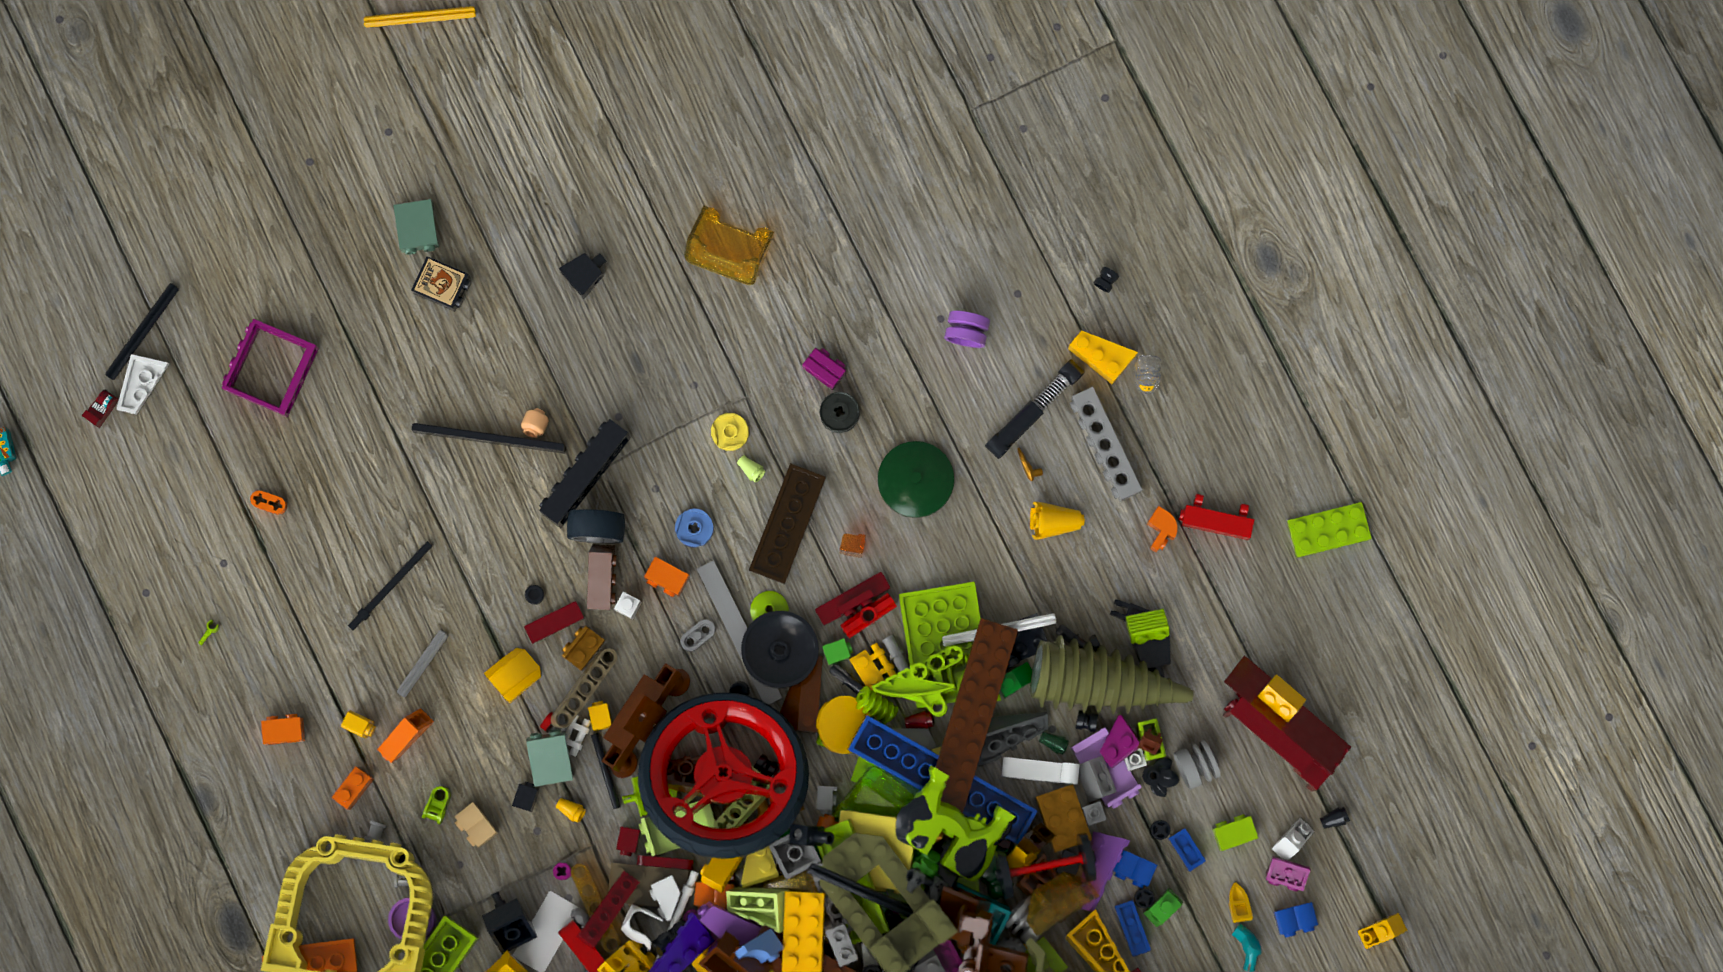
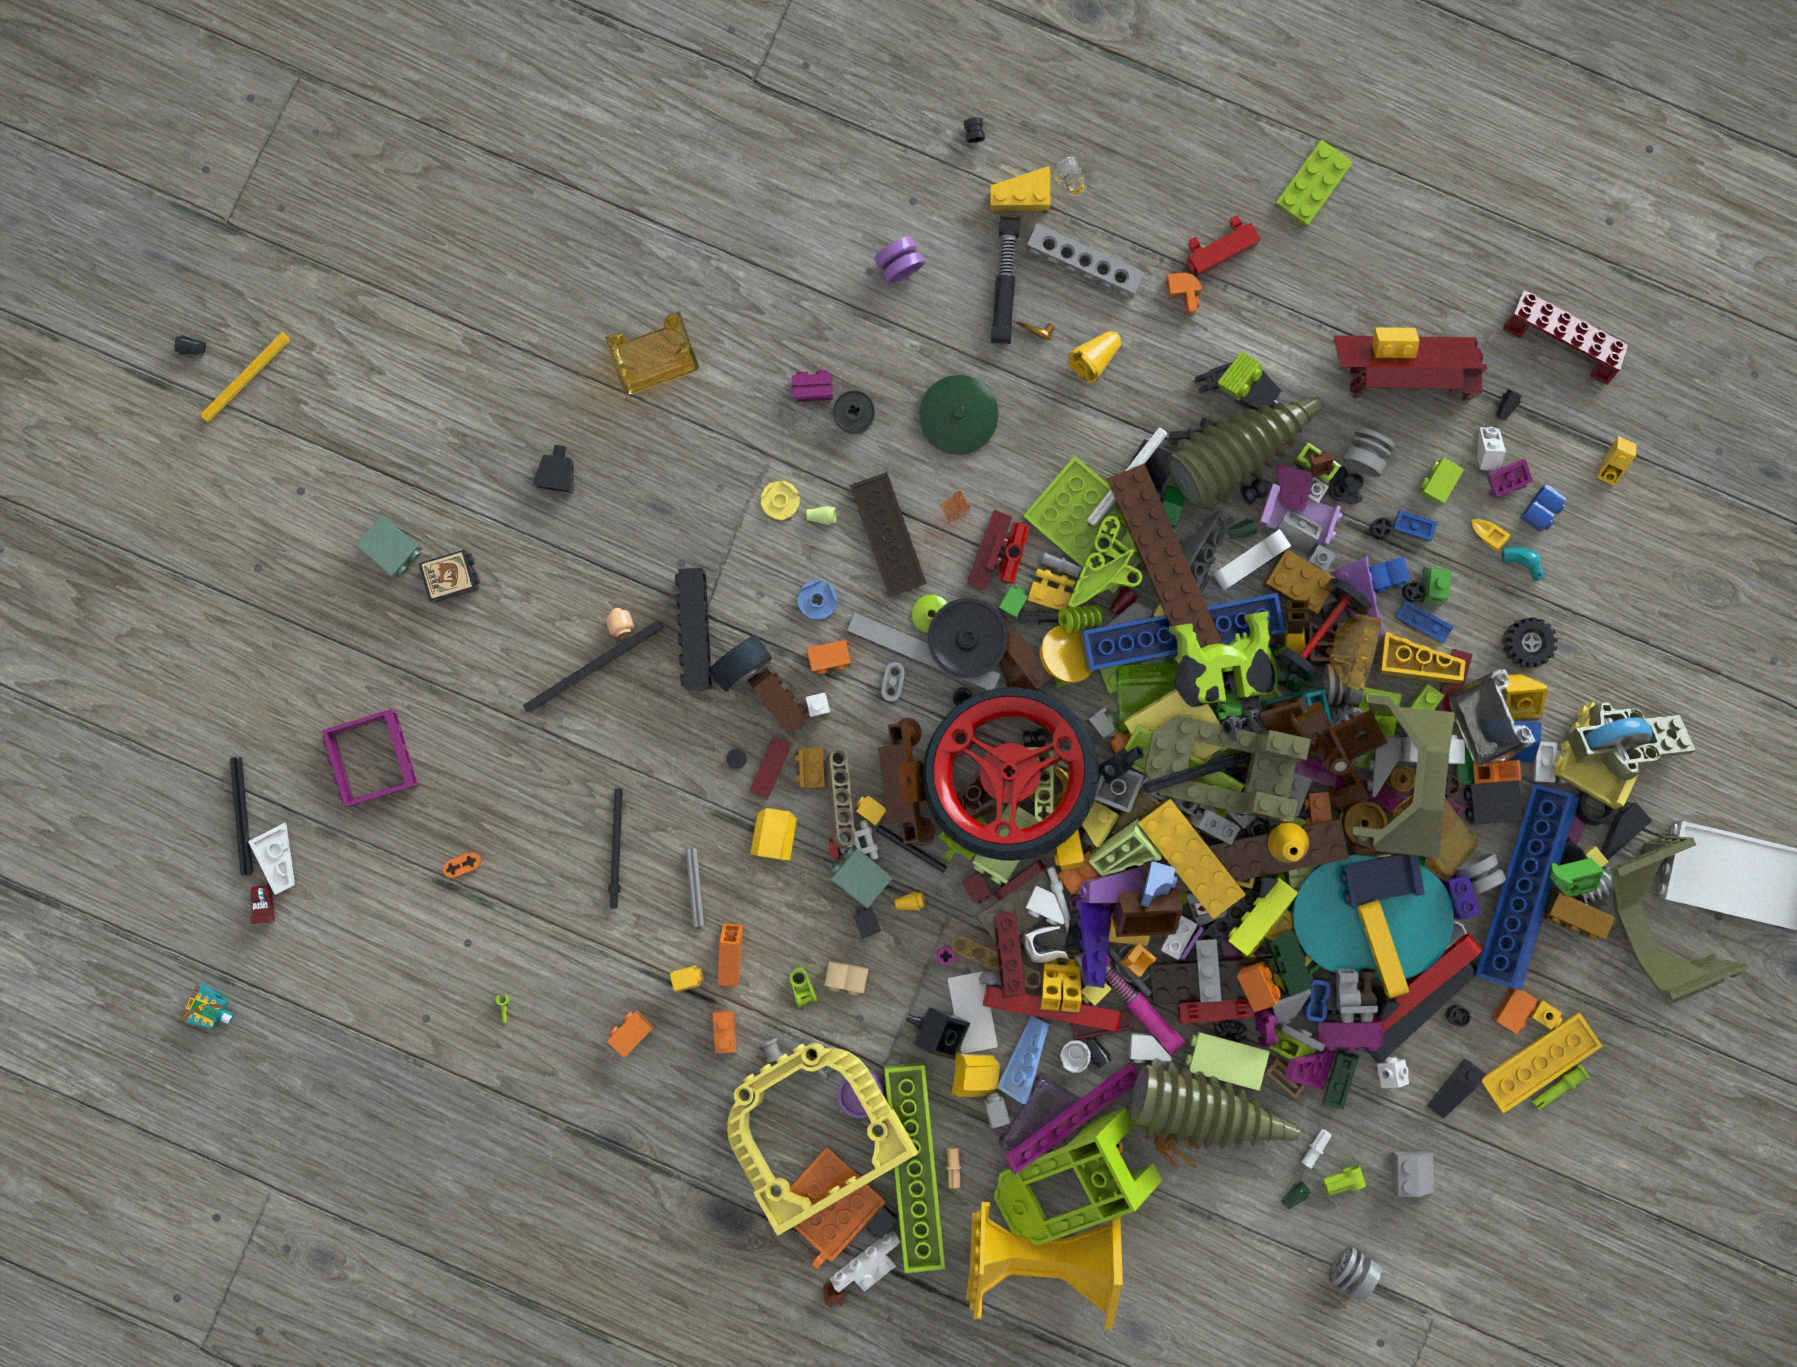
camera: 40 degrees left, 5 degrees up
(1428, 802) = (1570, 331): none -> bracket

